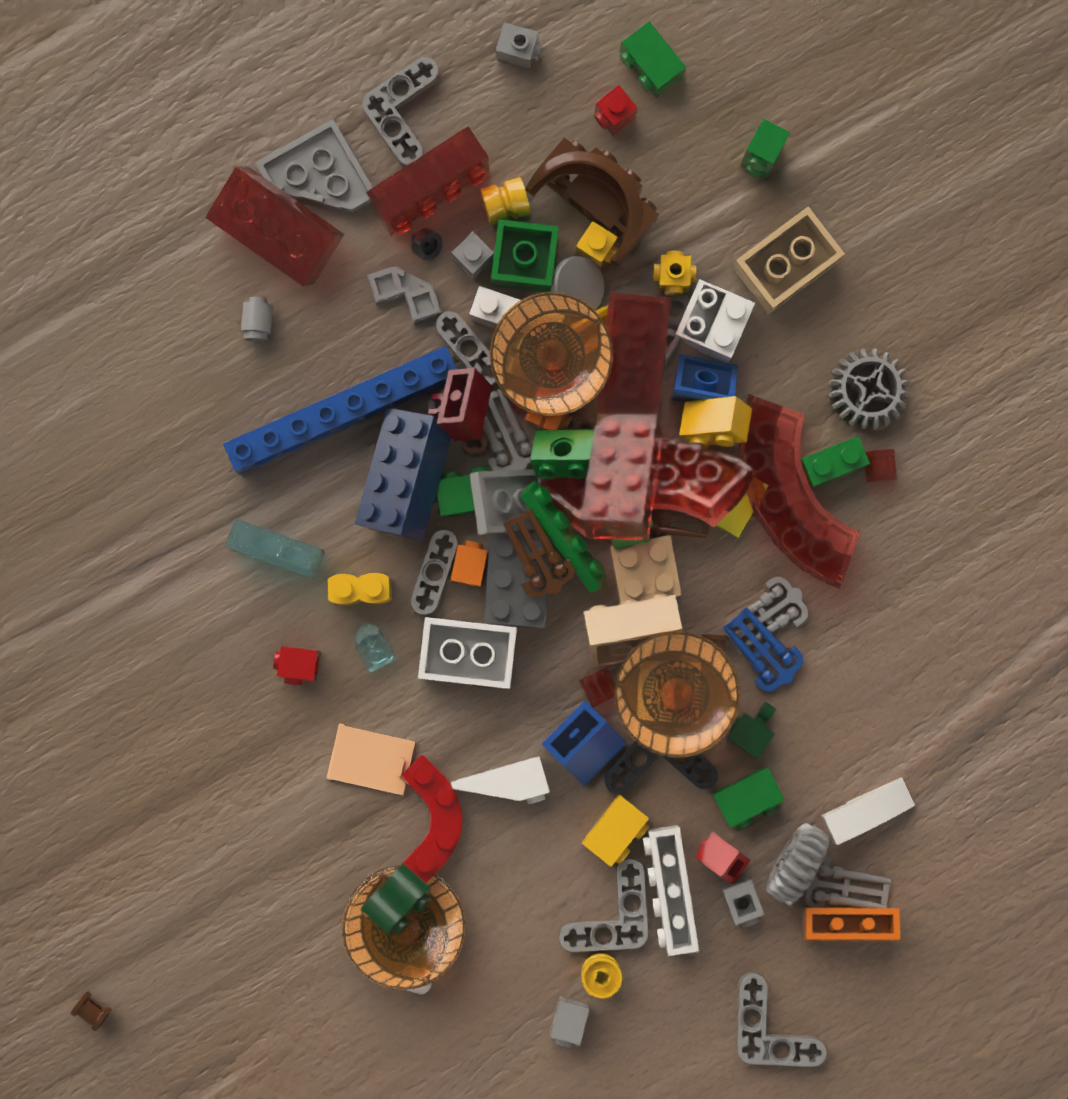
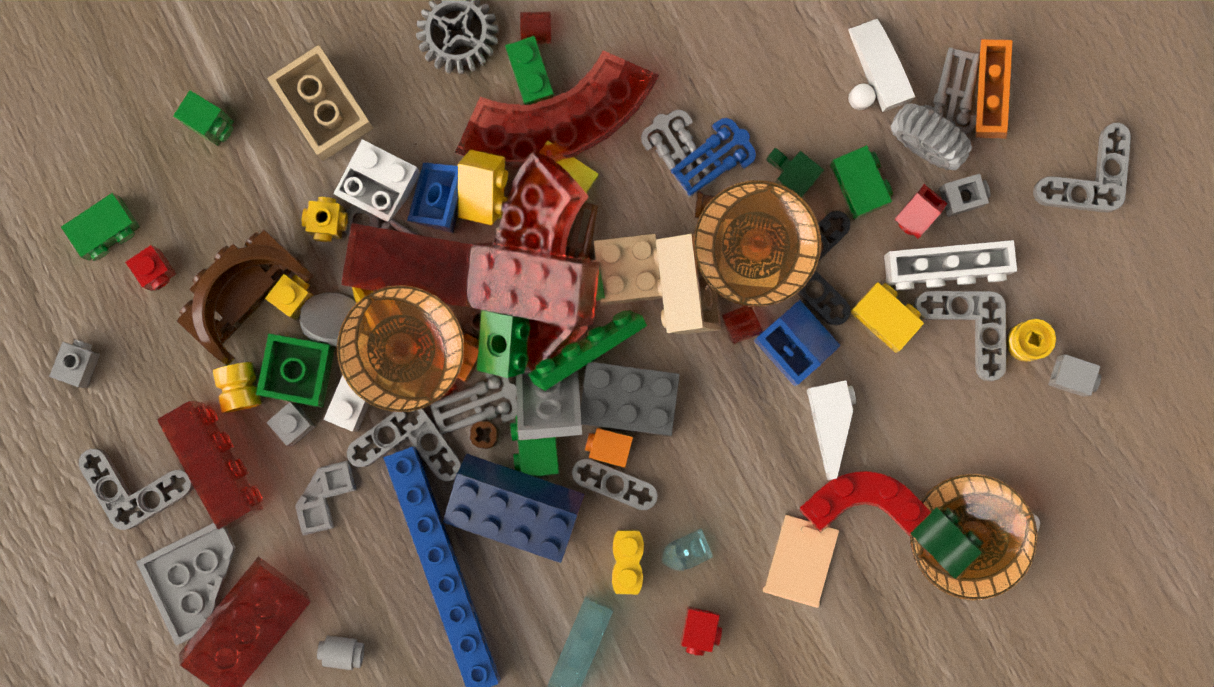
camera: 85 degrees left, 0 degrees up
(426, 244) = (274, 471): black tile -> none
(463, 404) = (445, 443): dark red brick -> none
(467, 653) = (700, 454): white brick -> none
(551, 586) = (638, 364): reddish brown piece -> none
(834, 794) = (862, 96): none -> white piece

